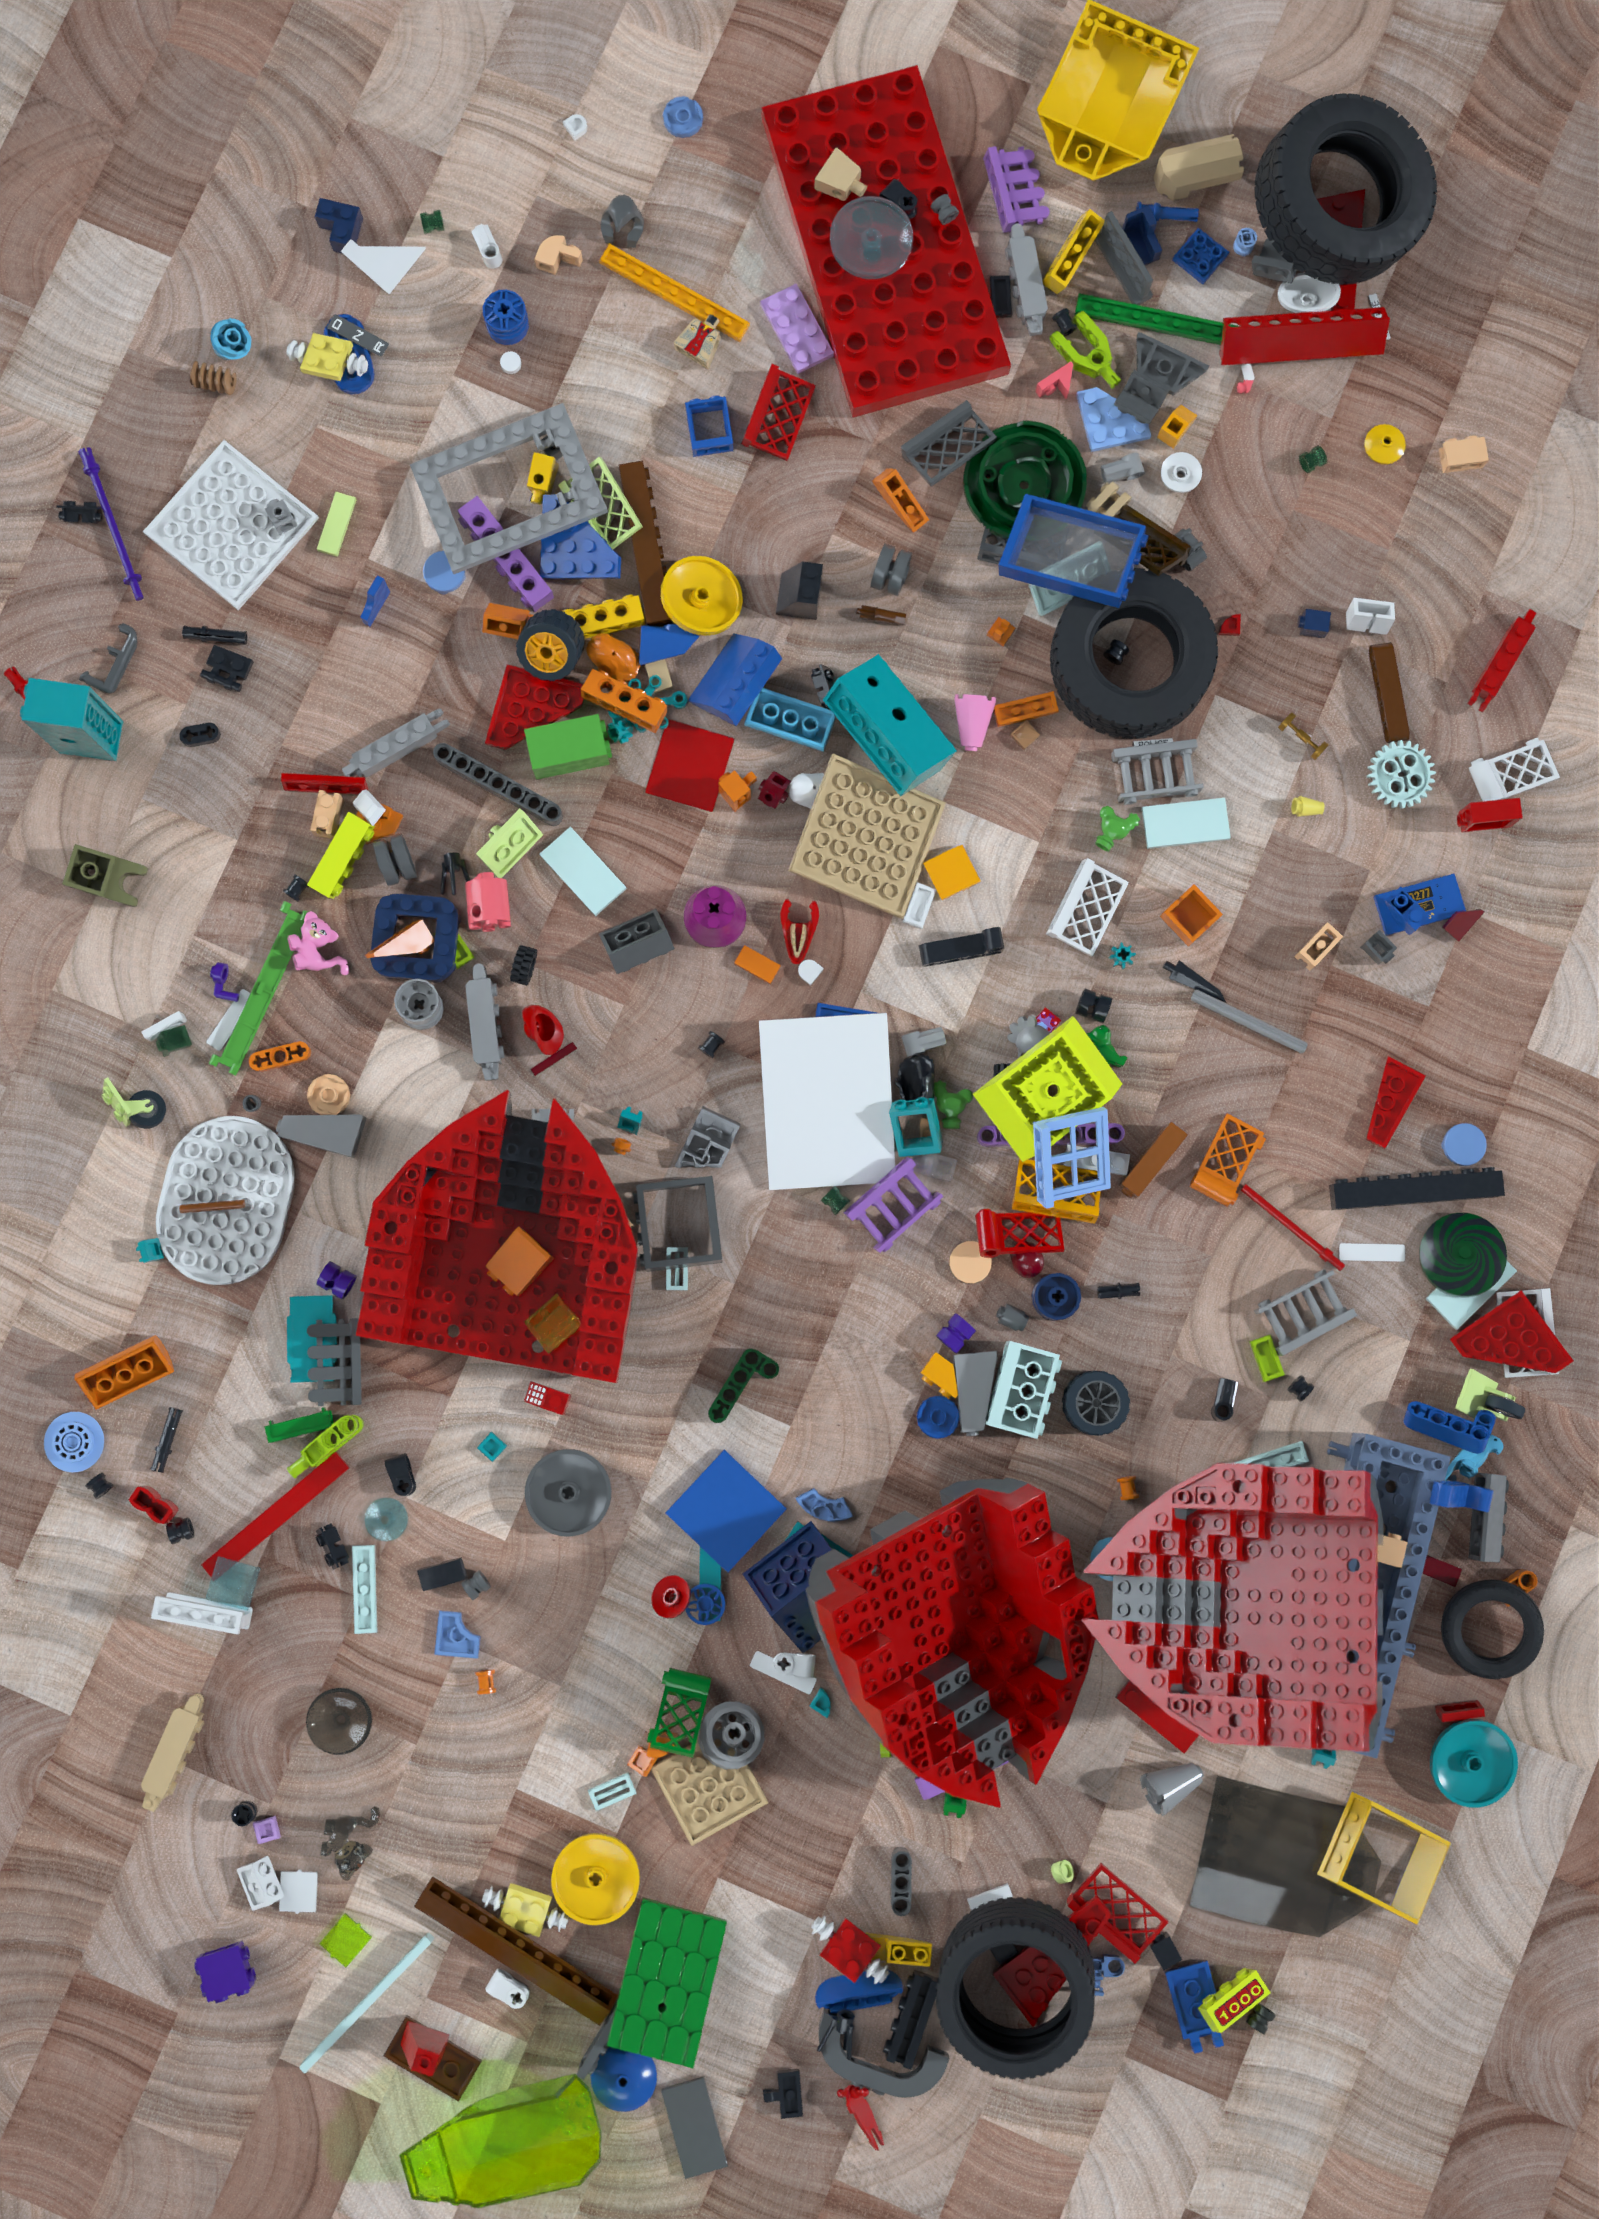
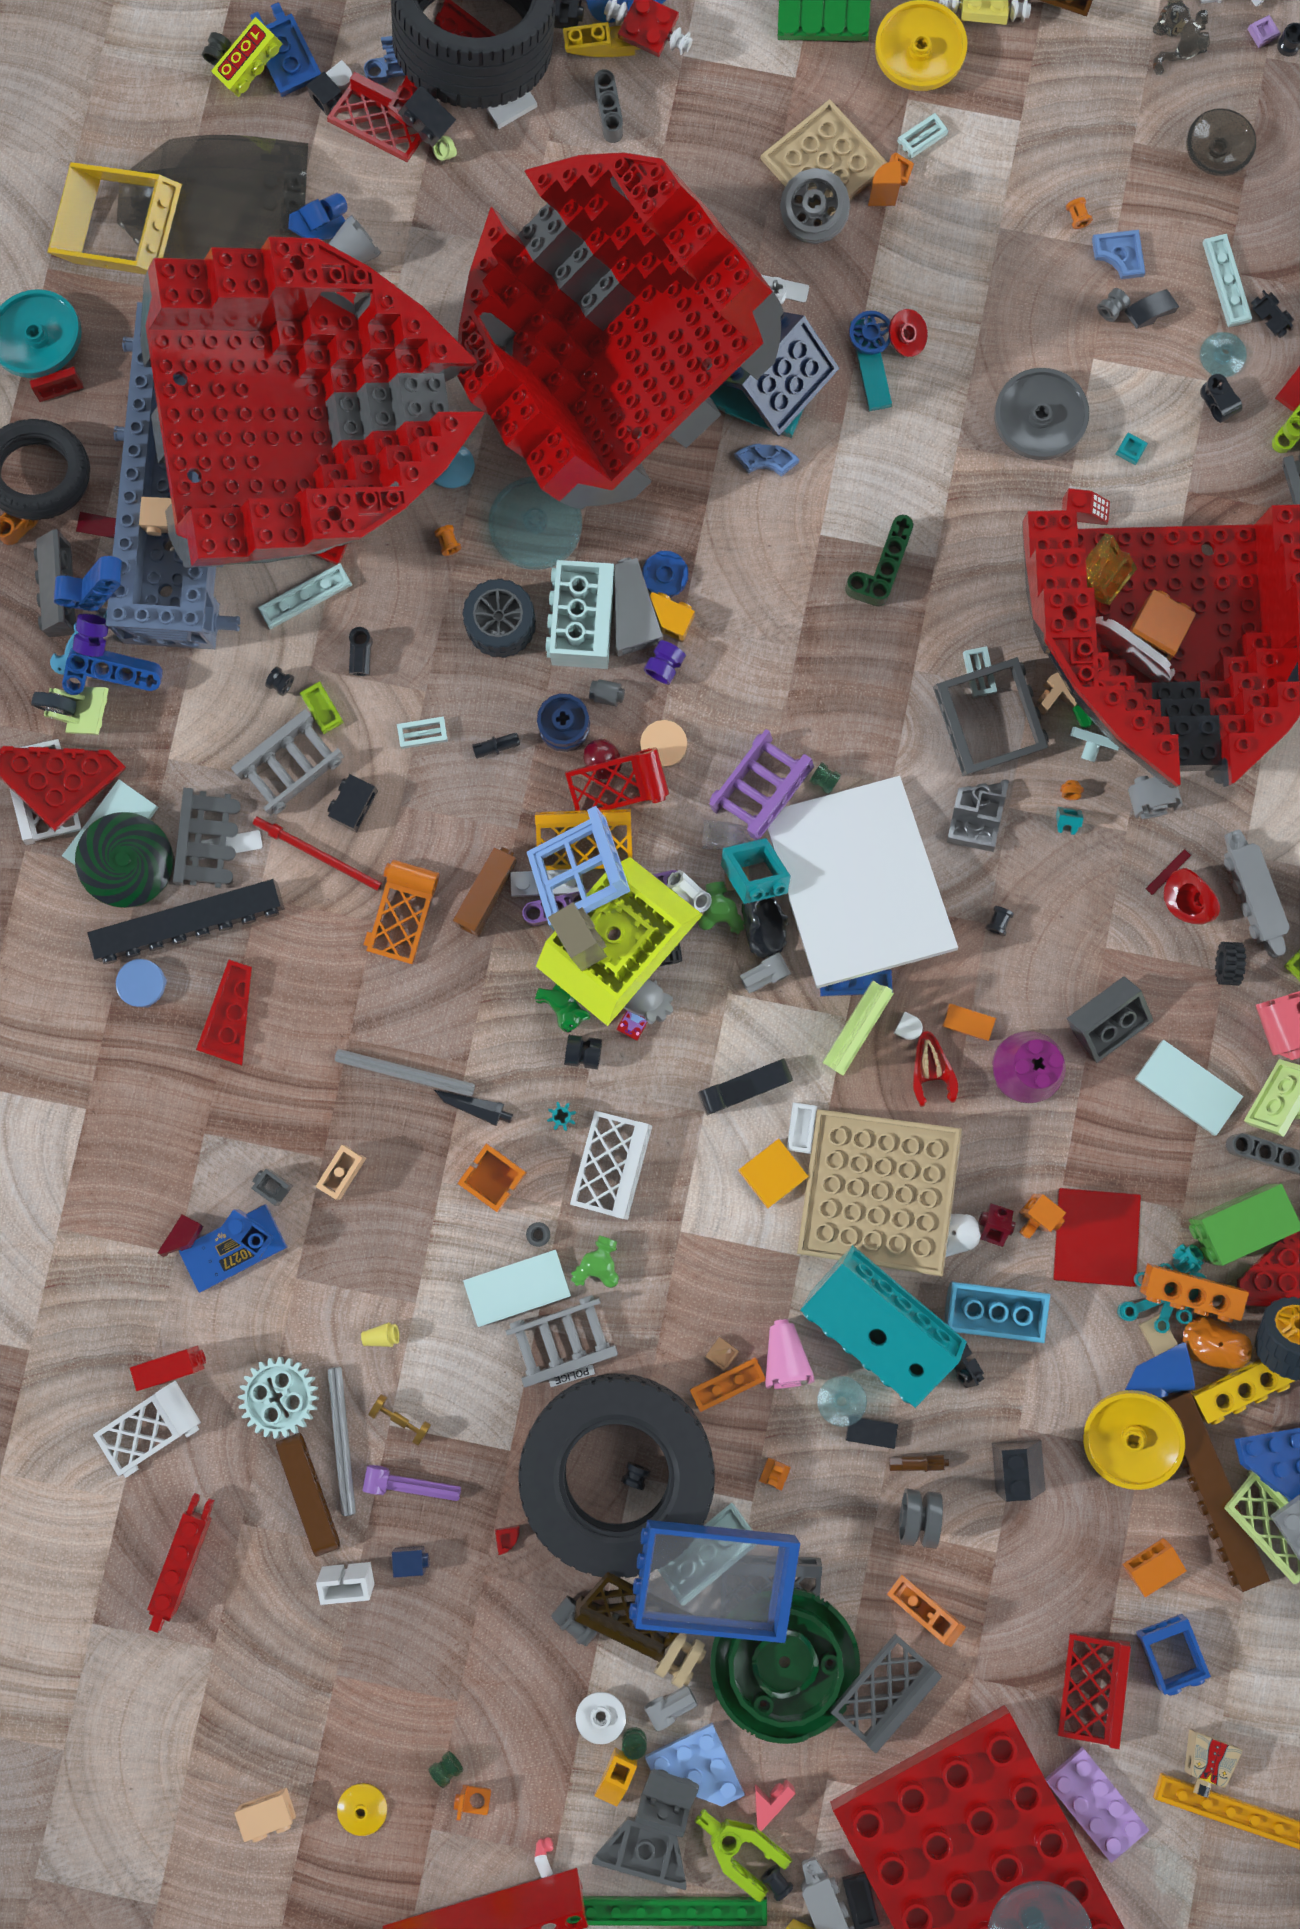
camera: 175 degrees right, 0 degrees up
(547, 1243) = (1134, 650): none -> white tile
(683, 1685) = (867, 248): green piece -> none
(707, 495) = (1154, 1567): none -> orange brick
(726, 1511) = (869, 432): blue tile -> none
(736, 678) = (1071, 1347): blue slope -> none
(855, 976) = (858, 1027): none -> yellowish green fence
(914, 647) = (873, 1433): none -> black tile
(934, 665) = (854, 1396): none -> clear light blue dish
(977, 1121) = (689, 891): none -> white piece
(1059, 1477) = (533, 526): none -> clear light blue dish
(1077, 1896) = (426, 116): none -> black brick
(1086, 1089) = (578, 936): none -> dark tan brick
(1147, 1968) = (340, 75): none -> white tile
(1156, 452) = (634, 1738): none -> clear green wheel
(1162, 857) = (530, 1234): none -> dark grey plate
(1192, 1819) = (319, 218): none -> blue panel
(1200, 1317) = (422, 723): none -> light aqua tile
(1255, 1264) = (352, 802): none -> black brick
(1303, 432) = (463, 1804): none -> orange bracket
(1328, 692) = (378, 1480): none -> medium lavender axle
(1354, 730) = (341, 1441): none -> light grey axle
(1391, 1271) = (203, 850): none -> dark grey fence
(1464, 1455) = (90, 636): none -> dark purple wheel

